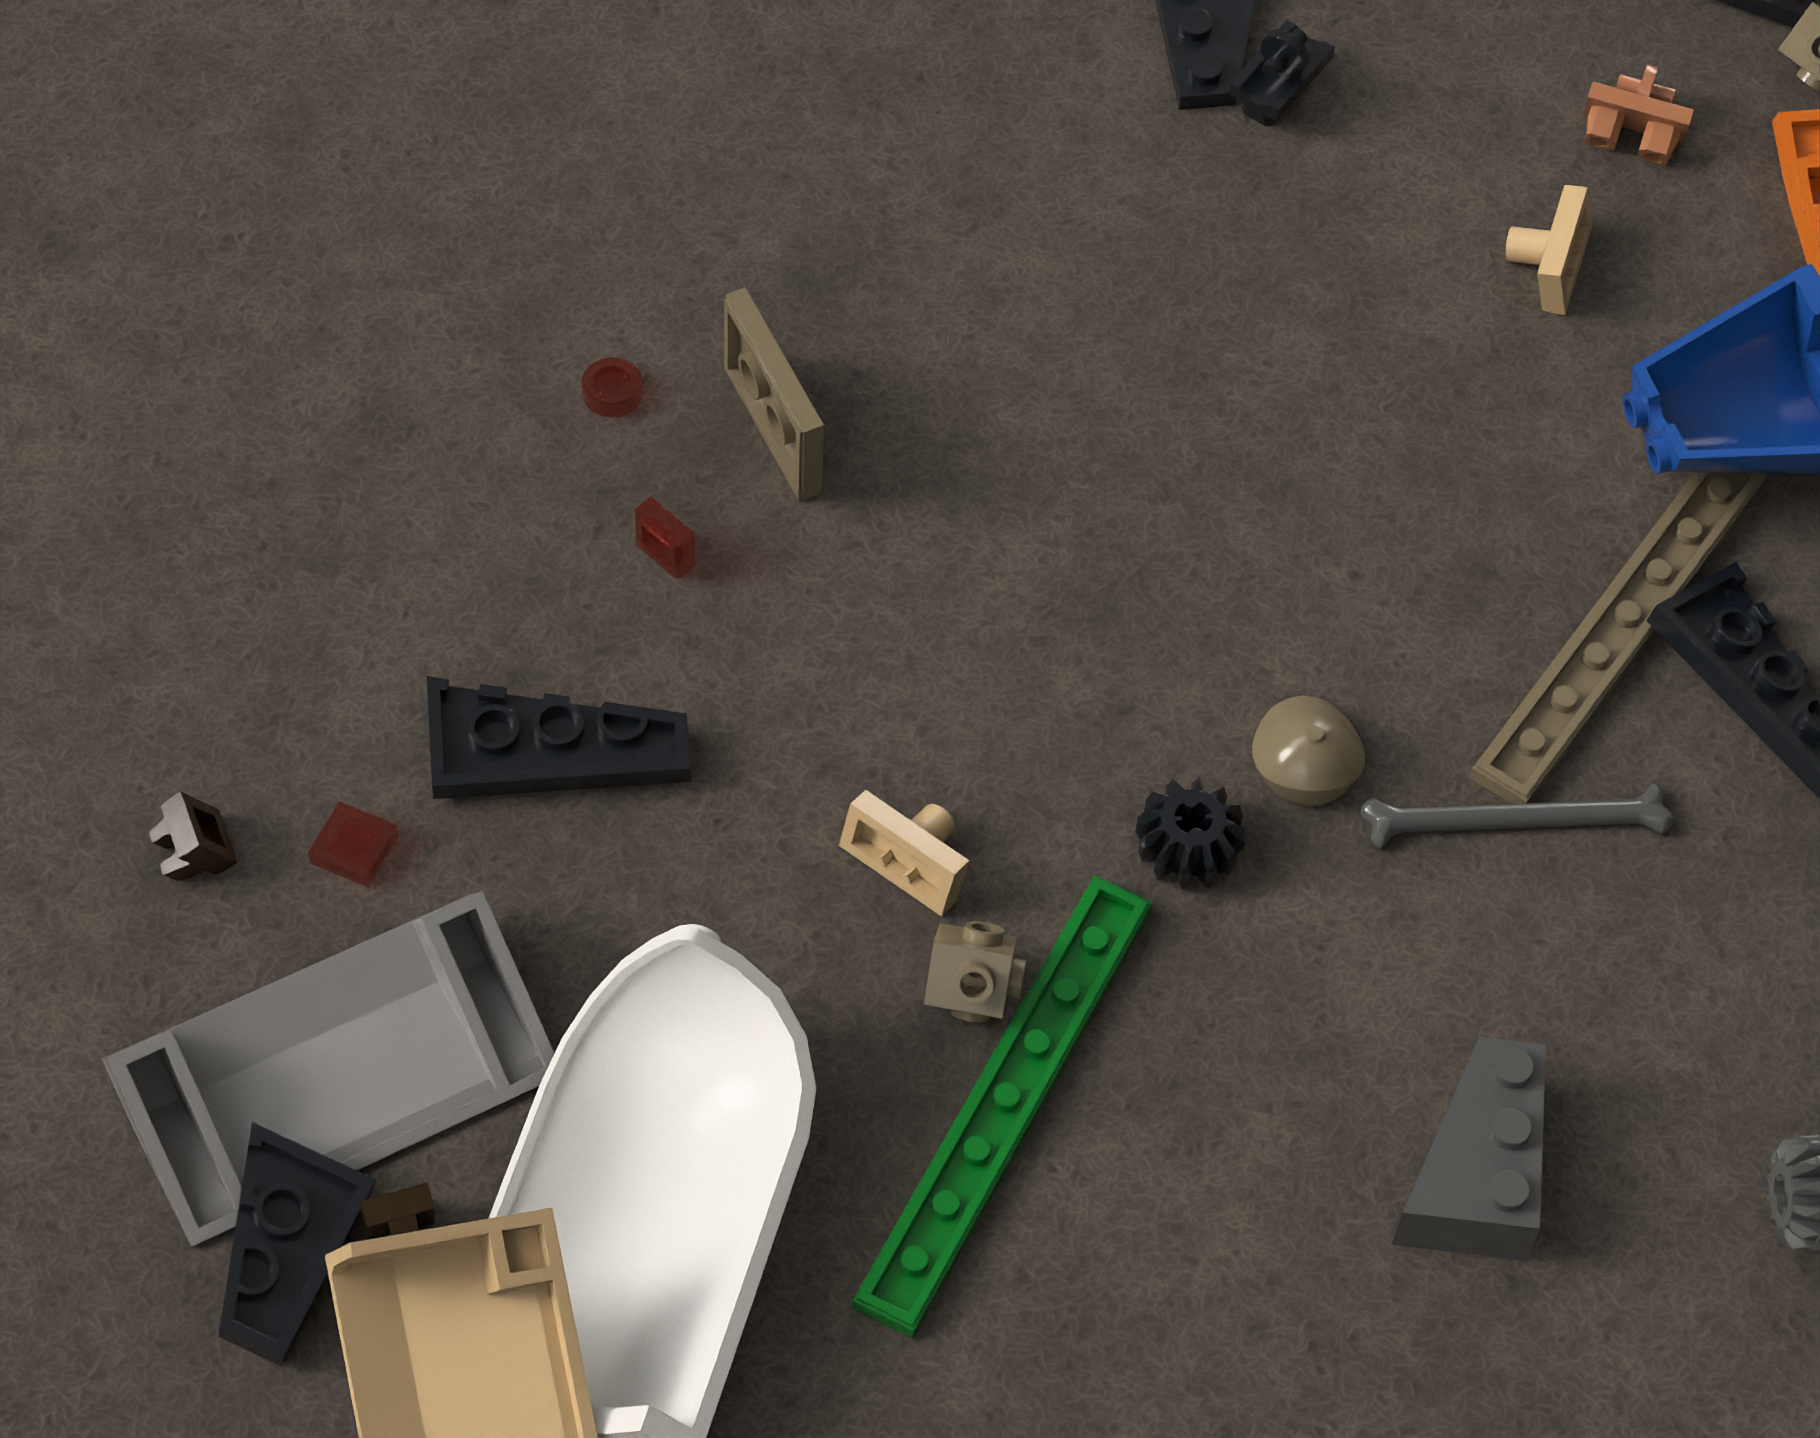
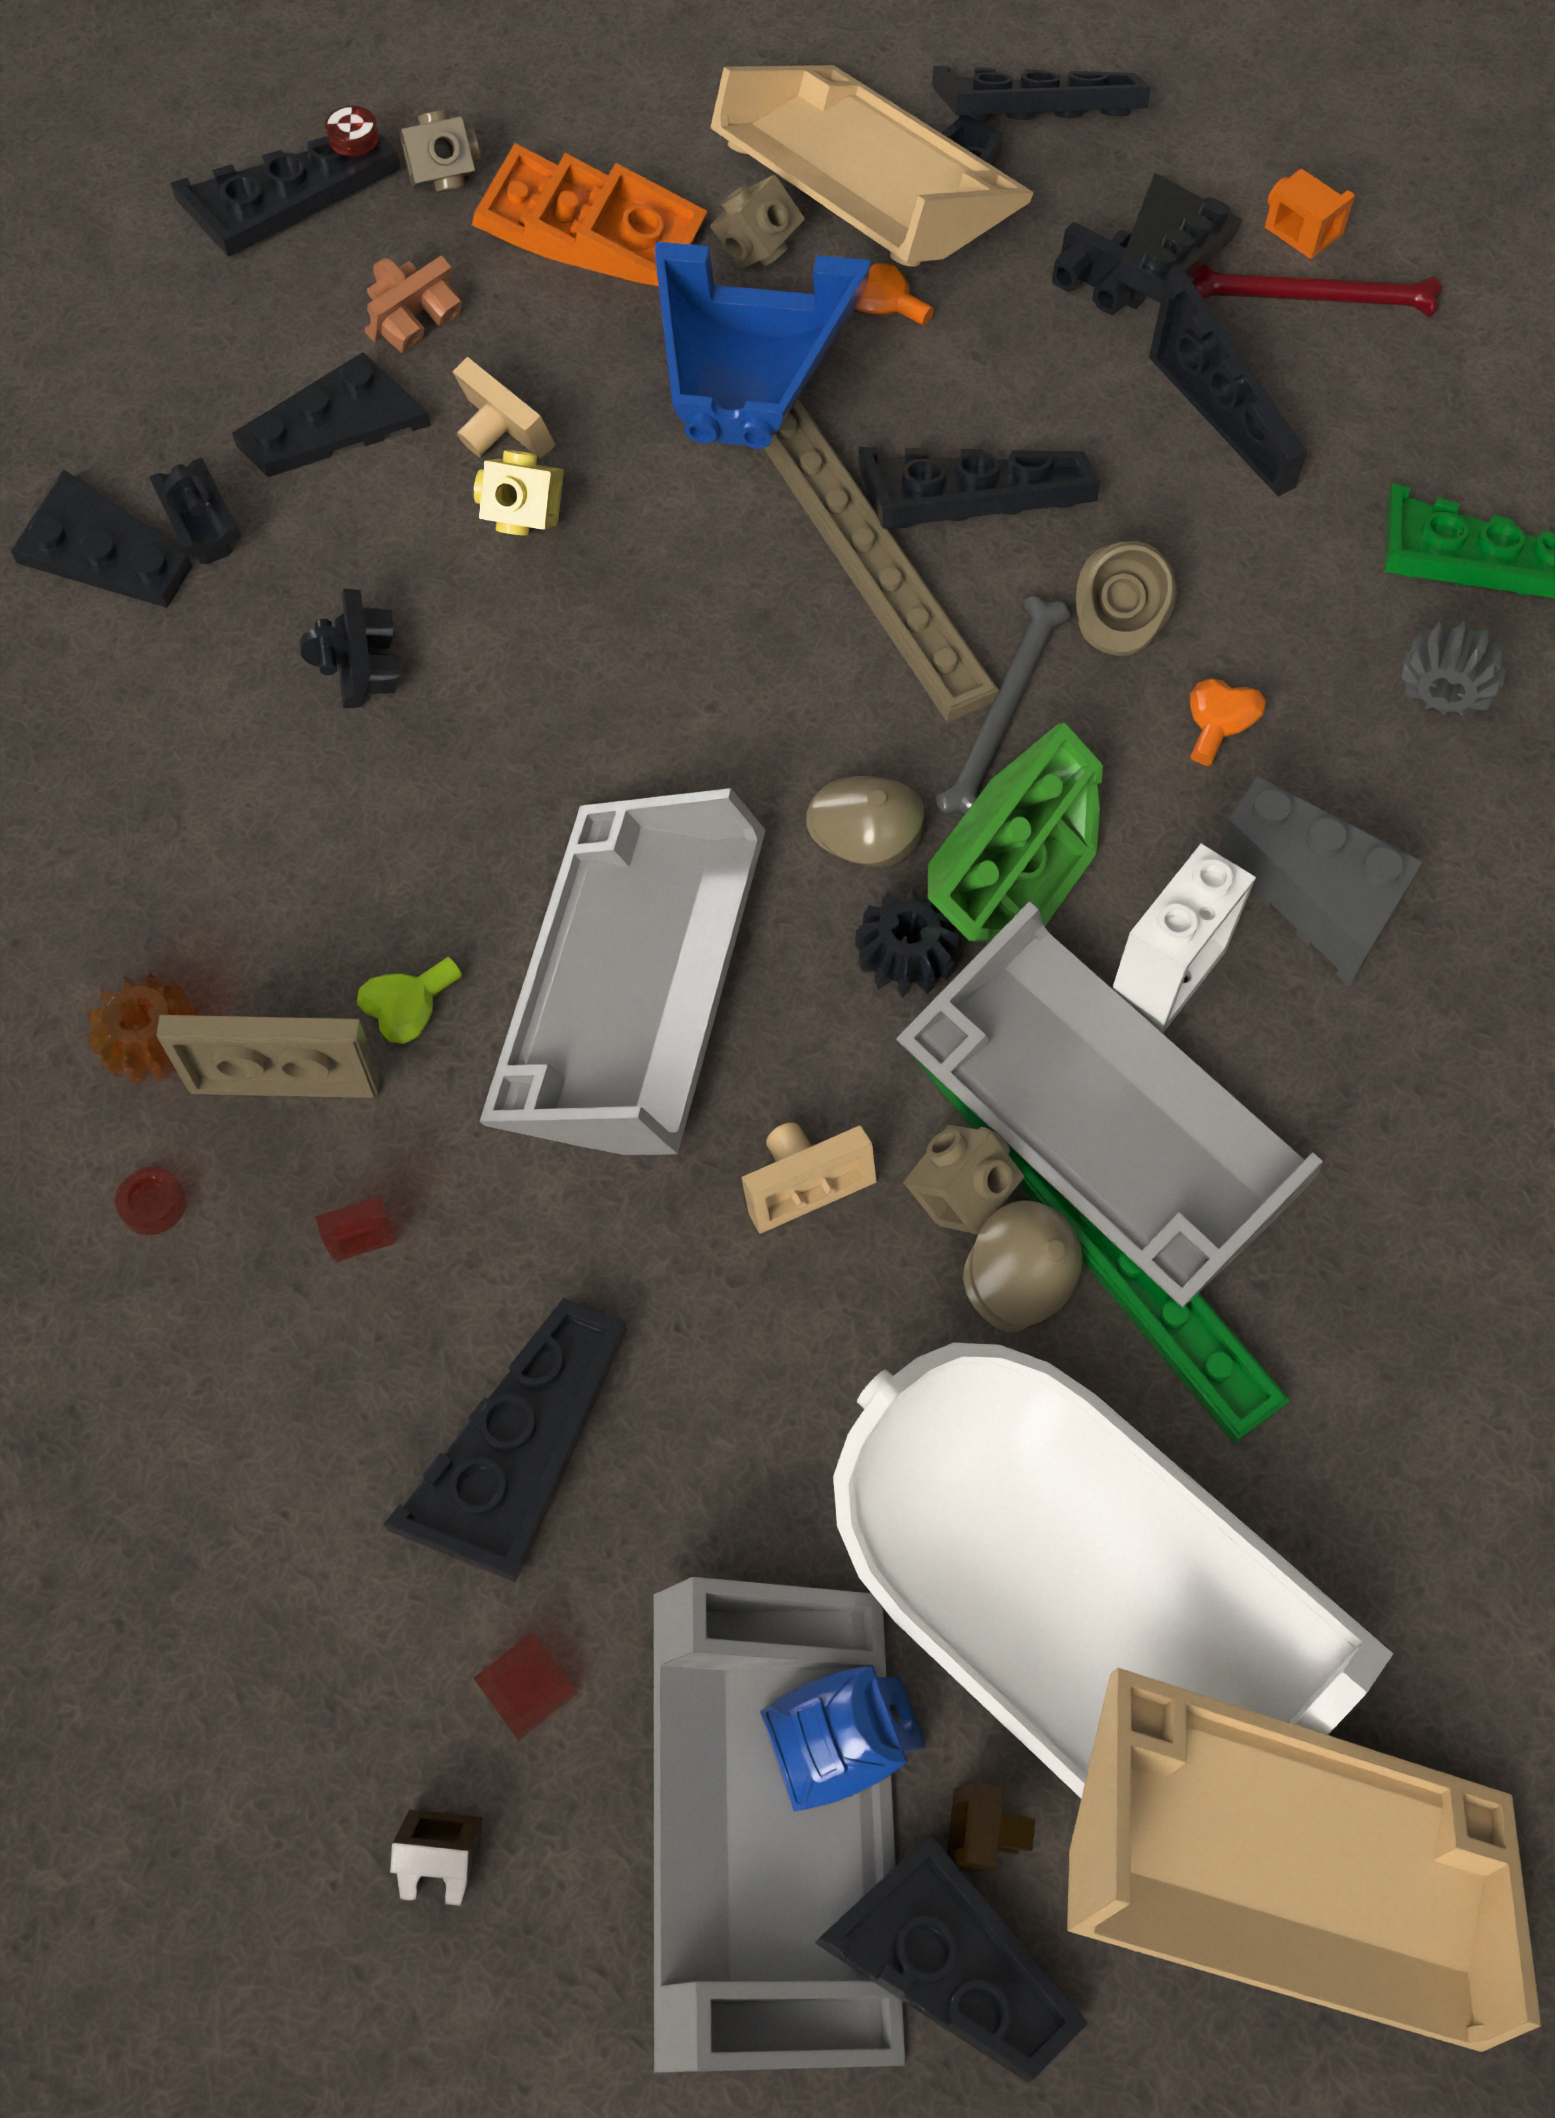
camera: 60 degrees left, 5 degrees up
(417, 1074) = (840, 1735): none -> blue piece
(771, 286) = (117, 1026): none -> clear orange gear
(899, 473) = (405, 1001): none -> lime rock
(916, 1055) = (1023, 1265): none -> dark tan hat
(1028, 627) = (628, 974): none -> light grey slope
(1116, 1061) = (1107, 1108): none -> light grey slope
(1201, 278) = (348, 648): none -> black hips
(1284, 1047) = (1182, 936): none -> white window
(1344, 882) = (1021, 838): none -> bright green wedge
(1471, 306) = (536, 488): none -> light yellow brick
(1474, 125) = (334, 412): none -> black wing
(1633, 1009) = (1221, 713): none -> orange rock
(1707, 863) = (1124, 597): none -> dark tan hat

